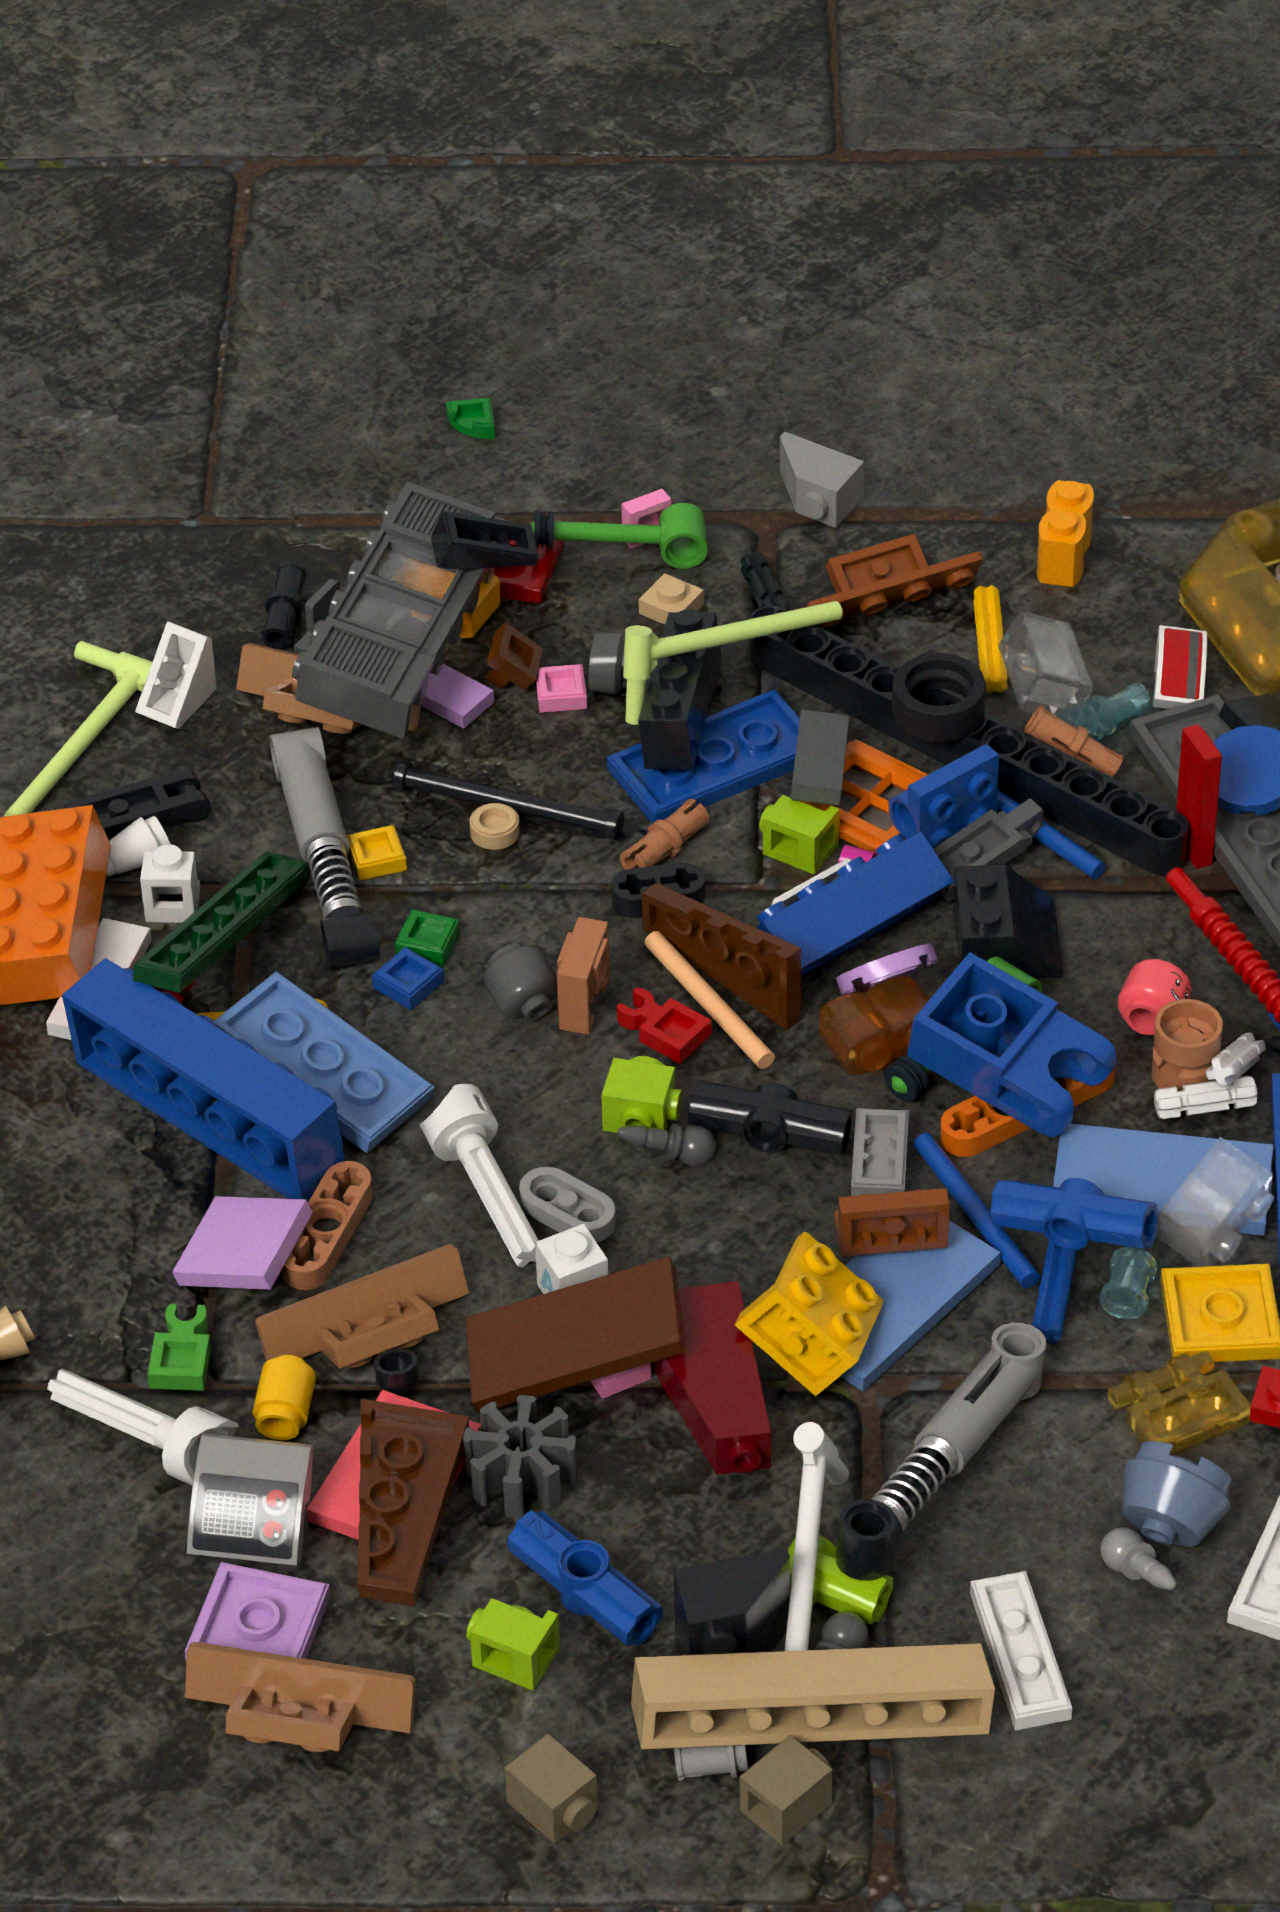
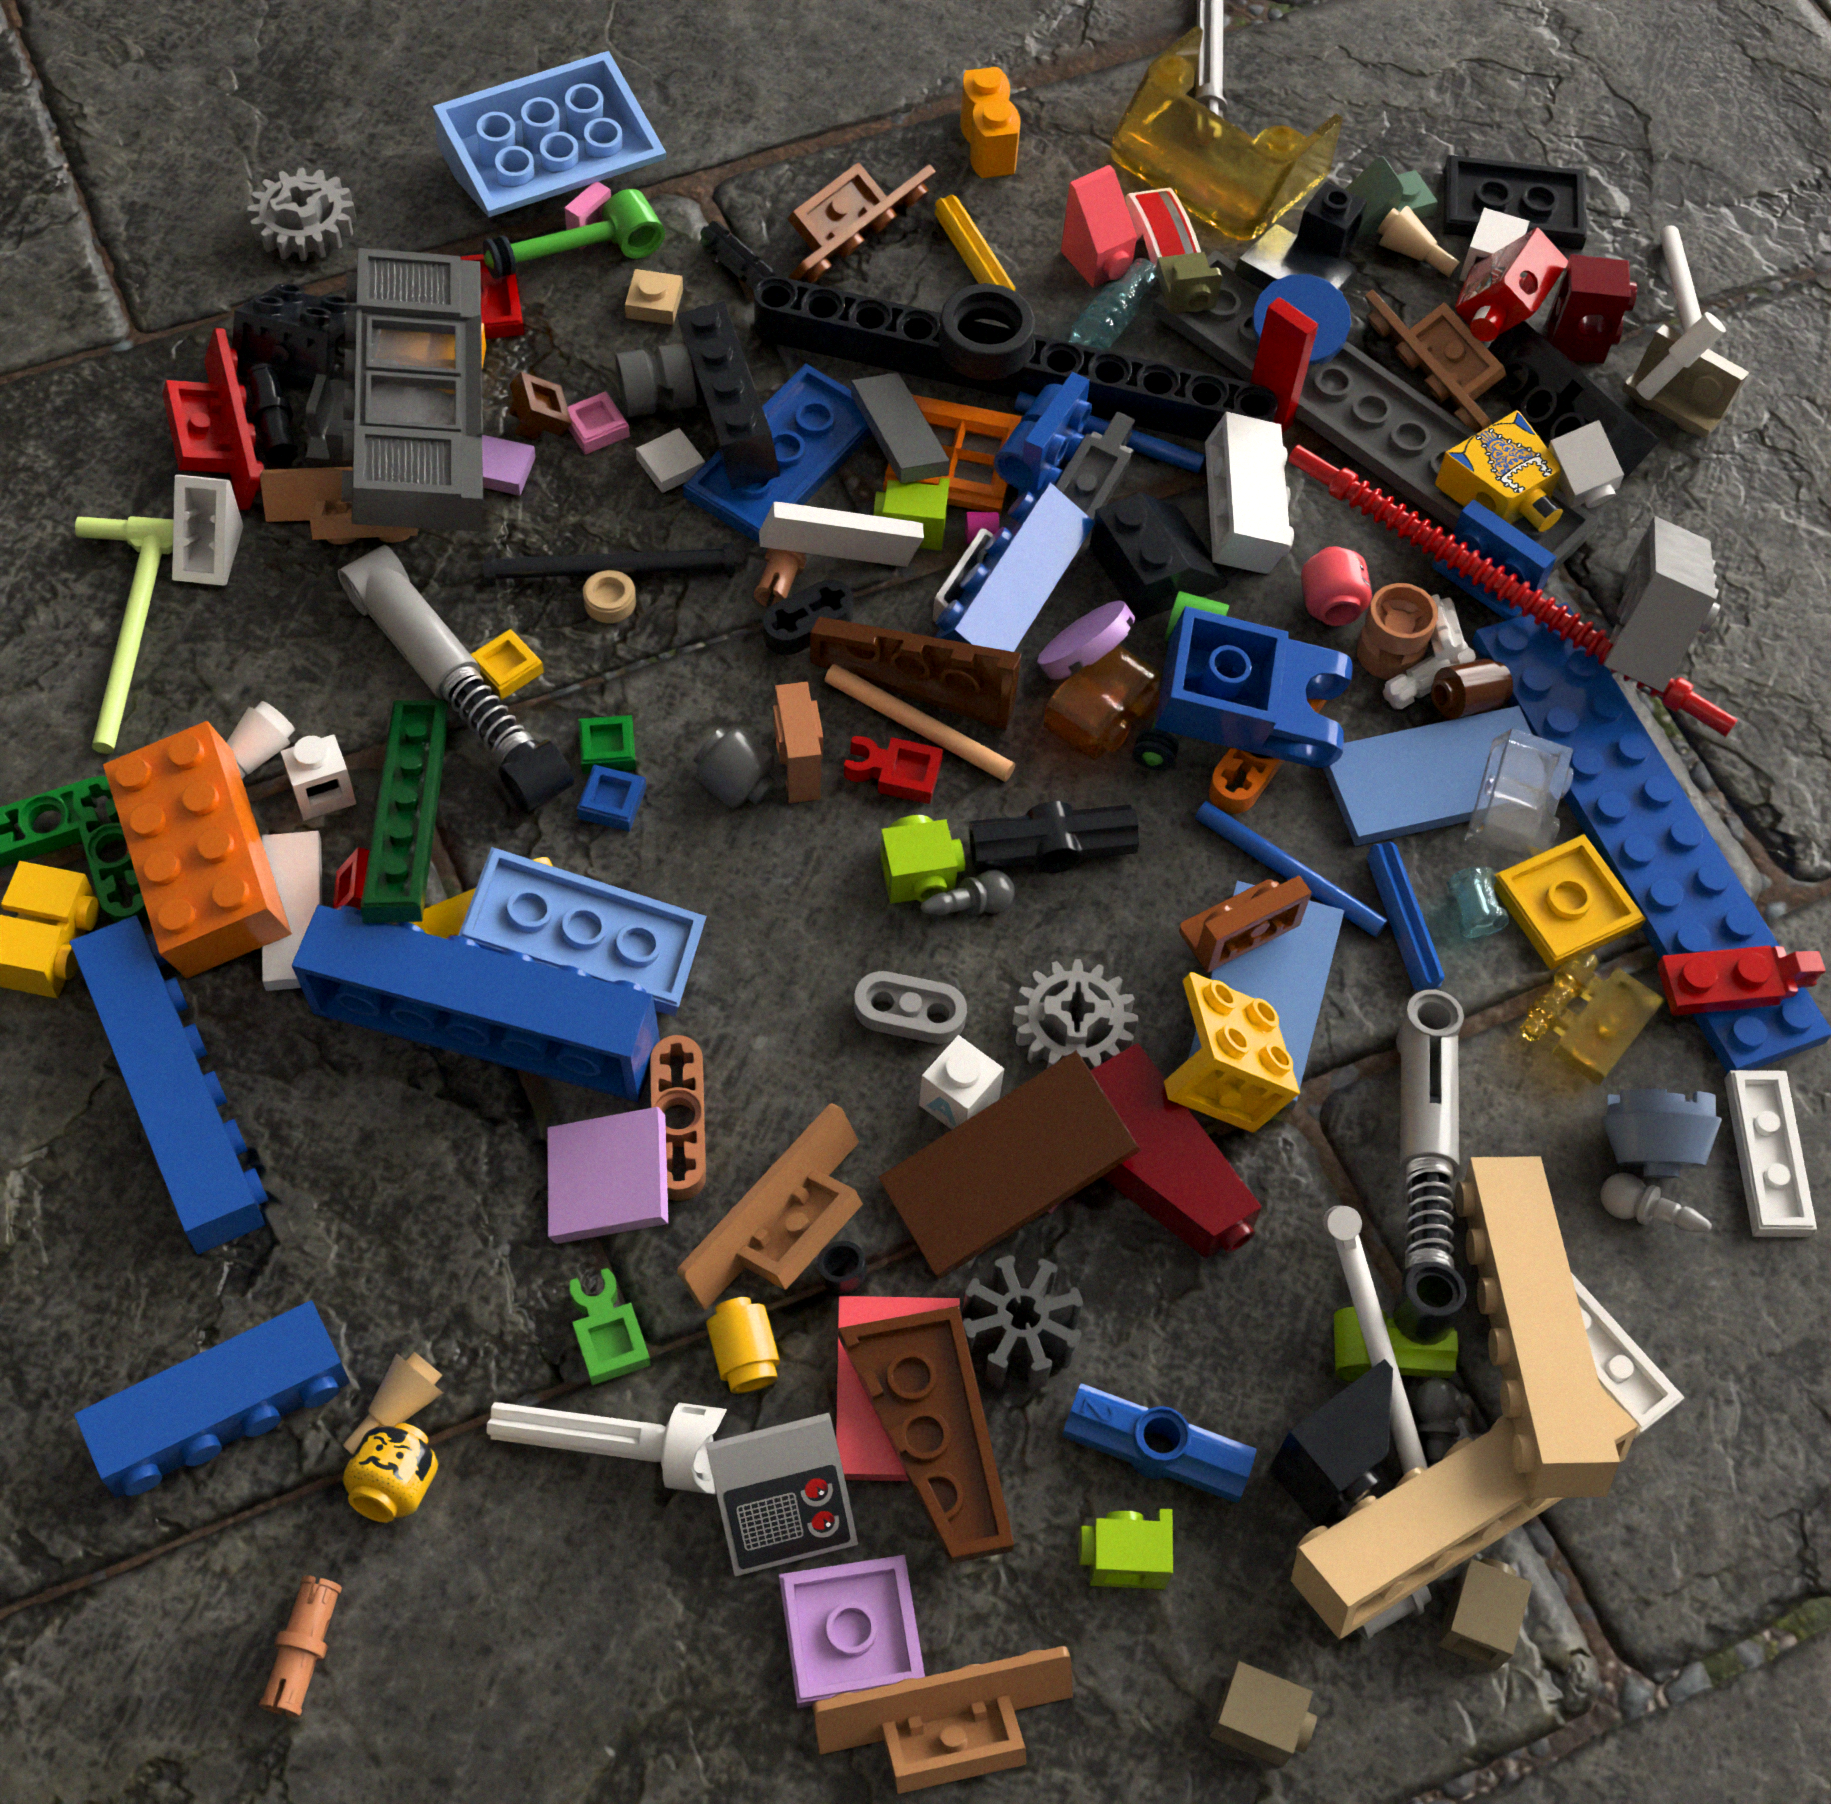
camera: 30 degrees left, 15 degrees up
(166, 797) = (236, 686): black plate -> none
(226, 595) = (211, 422): none -> red bracket
(324, 542) = (290, 332): none -> black bracket
(394, 454) = (302, 214): none -> light grey gear
(462, 1131) = (768, 963): white piece -> none
(465, 542) = (446, 312): black slope -> none
(472, 417) = (355, 151): green tile -> none
(607, 734) = (669, 460): none -> white tile
(640, 438) = (545, 134): none -> light blue slope
(644, 648) = (694, 363): yellowish green bar -> none
(706, 1247) = (1100, 1011): none -> light grey gear
(715, 826) = (840, 534): none -> white tile
(820, 479) = (729, 127): light grey slope -> none
(879, 1151) = (1176, 842): light grey plate -> none
(949, 1587) = (1536, 1330): none -> tan brick
(1044, 663) = (1049, 266): clear brick -> none
(1072, 741) = (1118, 338): nougat pin -> none
(1074, 1214) = (1408, 851): blue piece -> none
(1109, 639) = (1098, 228): none -> coral slope
(1119, 901) = (1248, 493): none -> white brick
(1165, 711) = (1188, 282): none -> olive bracket
(1232, 1115) = (1471, 688): none -> reddish brown brick

